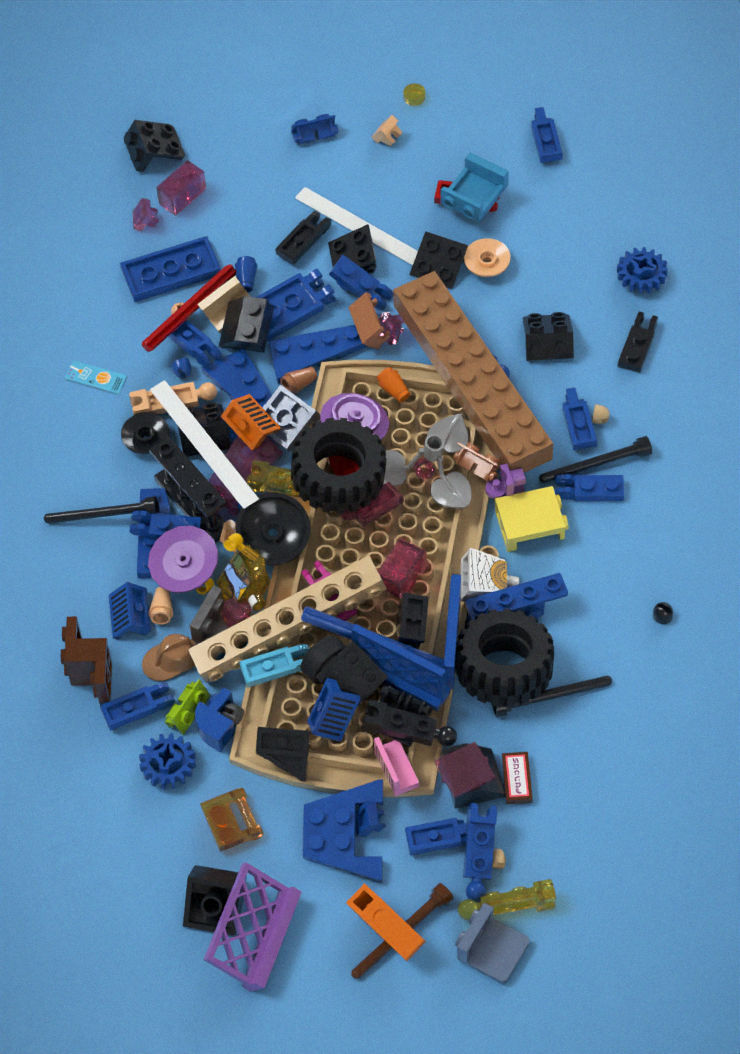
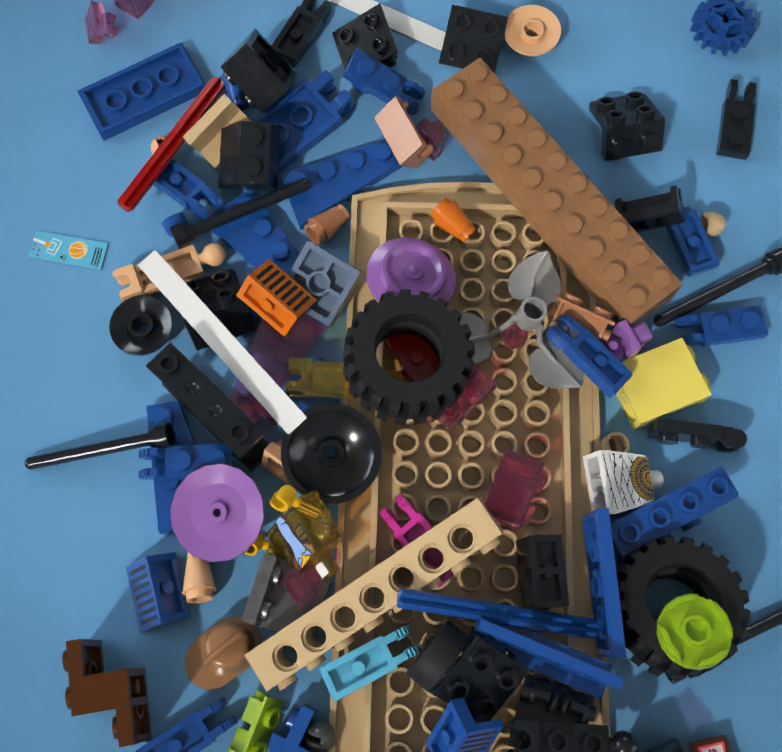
camera: 10 degrees left, 15 degrees up
(189, 372) = (186, 233): none -> black piece
(264, 263) = (258, 71): none -> black slope
(476, 486) = (589, 355): none -> blue hinge
(506, 660) = (694, 632): none -> lime tile
(551, 399) = (653, 211): none -> black hinge
(552, 556) = (698, 434): none -> black hinge

